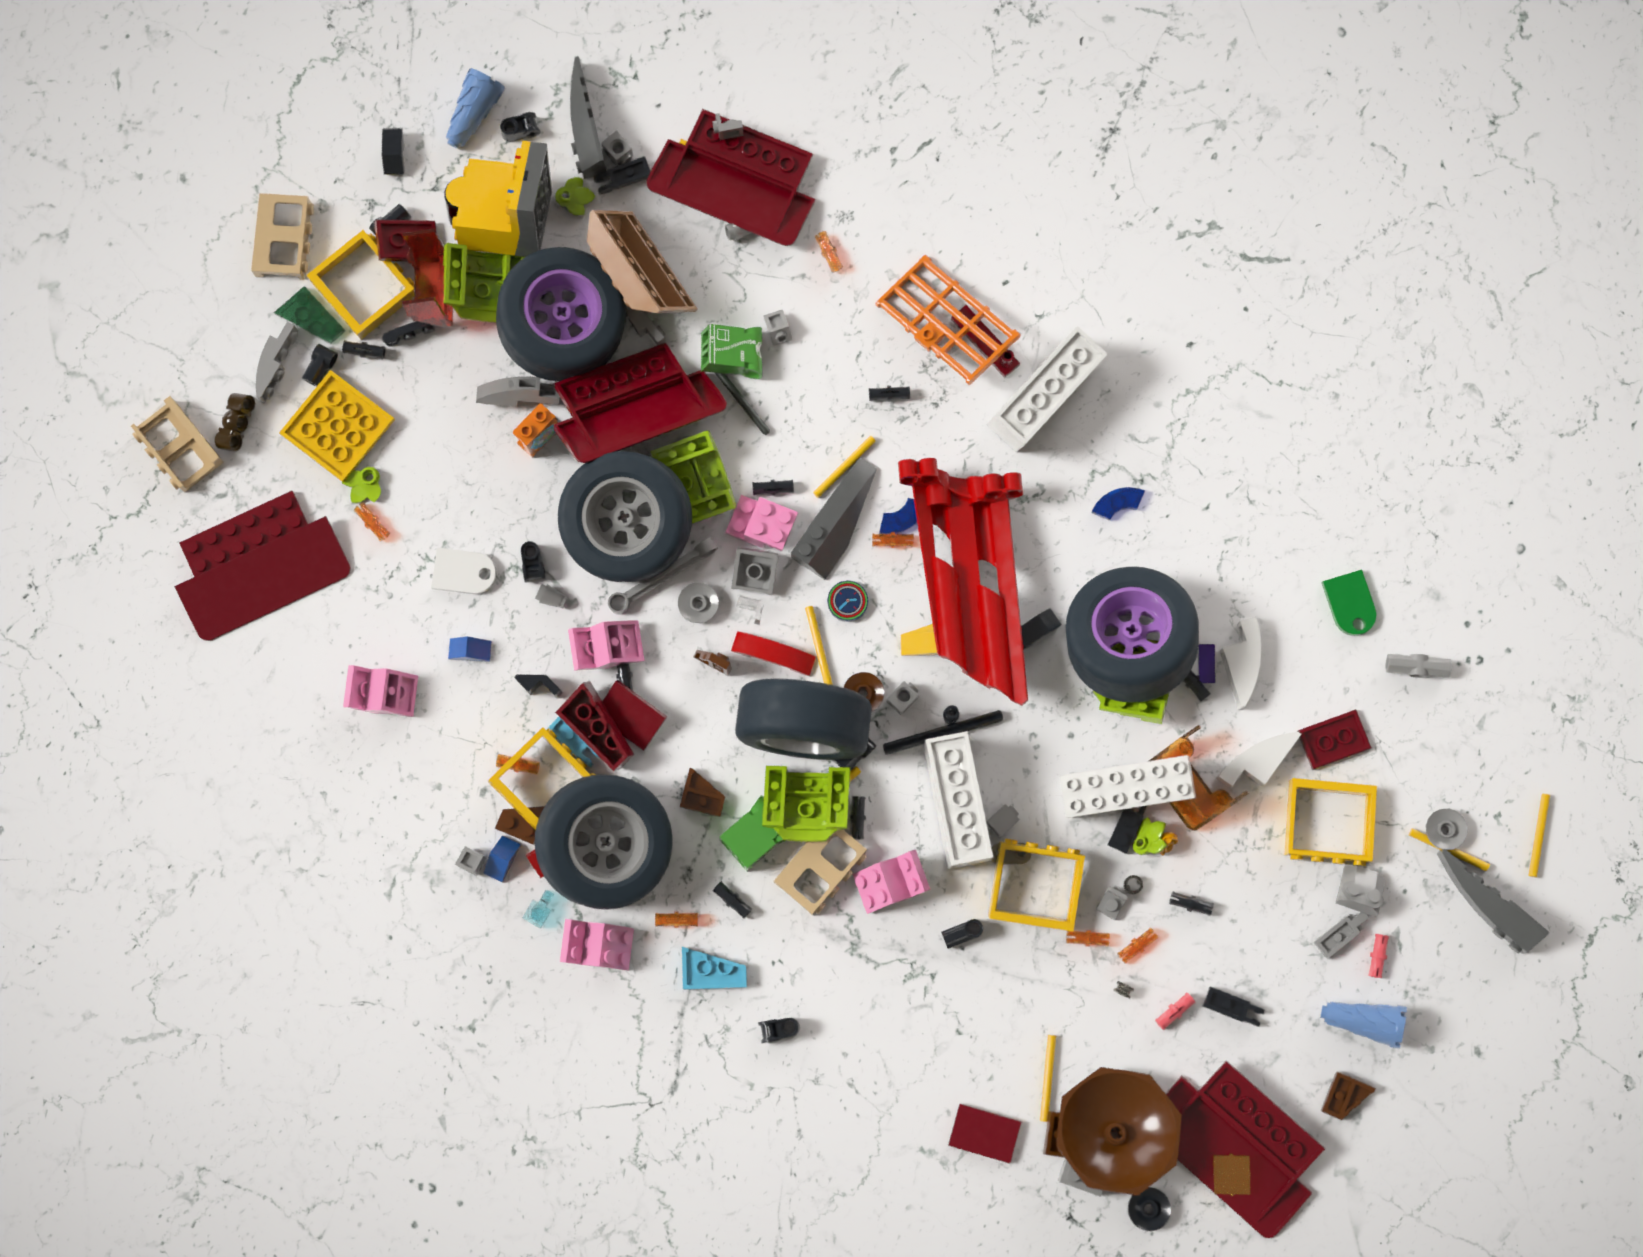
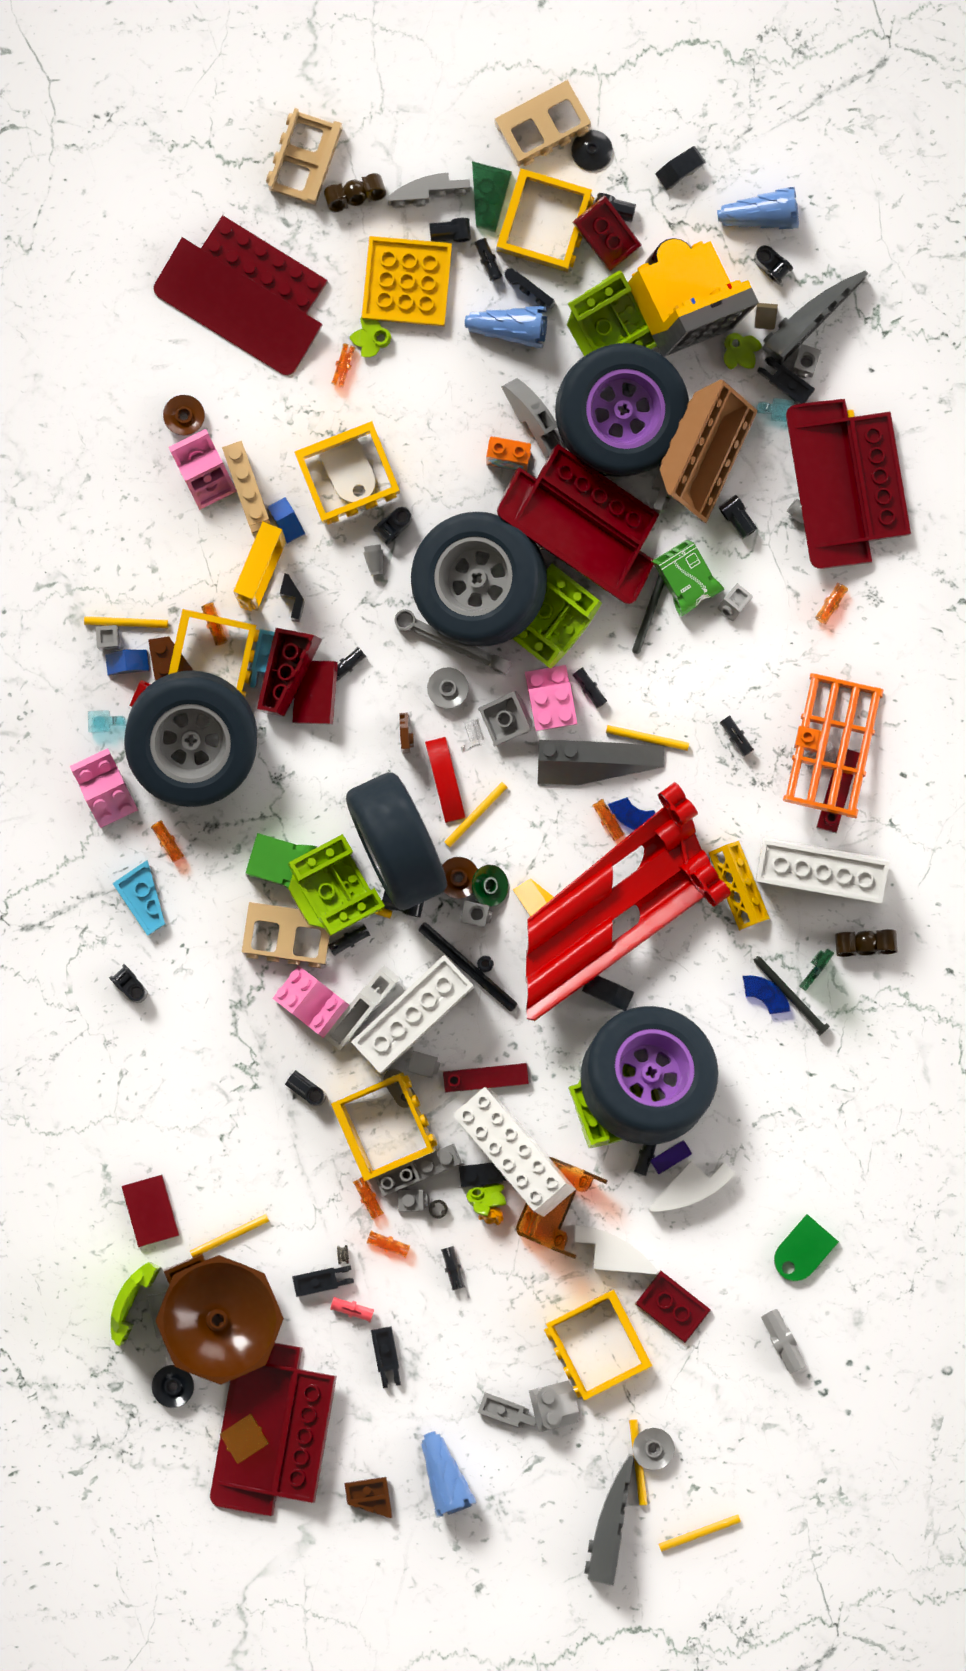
camera: 60 degrees right, 5 degrees up
(318, 672) = (183, 405): none -> reddish brown dish
(332, 221) = (592, 160): none -> black dish
(420, 662) = (246, 485): none -> tan window
(427, 258) = (599, 262): clear red windscreen -> none
(431, 362) = (513, 325): none -> medium blue cone
(431, 565) = (335, 441): none -> yellow window
(467, 838) = (126, 622): none -> yellow bar
(495, 691) = (259, 566): none -> yellow window
(560, 155) = (765, 316): none -> dark tan slope
(606, 645) = (360, 633): bright pink bracket -> none
(641, 197) = (776, 409): none -> clear light blue plate
(701, 795) = (284, 796): reddish brown wing -> none
(703, 281) = (735, 512): none -> black piece
(729, 129) = (884, 448): light grey bracket -> none
(732, 899) = (213, 877): black pin -> none
(847, 601) = (530, 814): tile -> none
(886, 670) = (496, 885): none -> dark green dish
(923, 840) = (362, 1007): none -> white slope
(1019, 463) = (742, 883): none -> yellow fence
(1040, 1175) = (144, 1277): none -> lime slope
(1046, 775) = (485, 1077): none -> dark red piece
(1091, 883) = (418, 1169): none -> light grey slope
(1123, 441) = (819, 962): none -> clear green wing
(1127, 394) = (866, 943): none -> dark brown piece
(1134, 1023) = (319, 1281): none -> black hinge
(1174, 474) = (791, 996): none -> pearl dark grey bar
(1378, 956) = (507, 1454): coral pin -> none

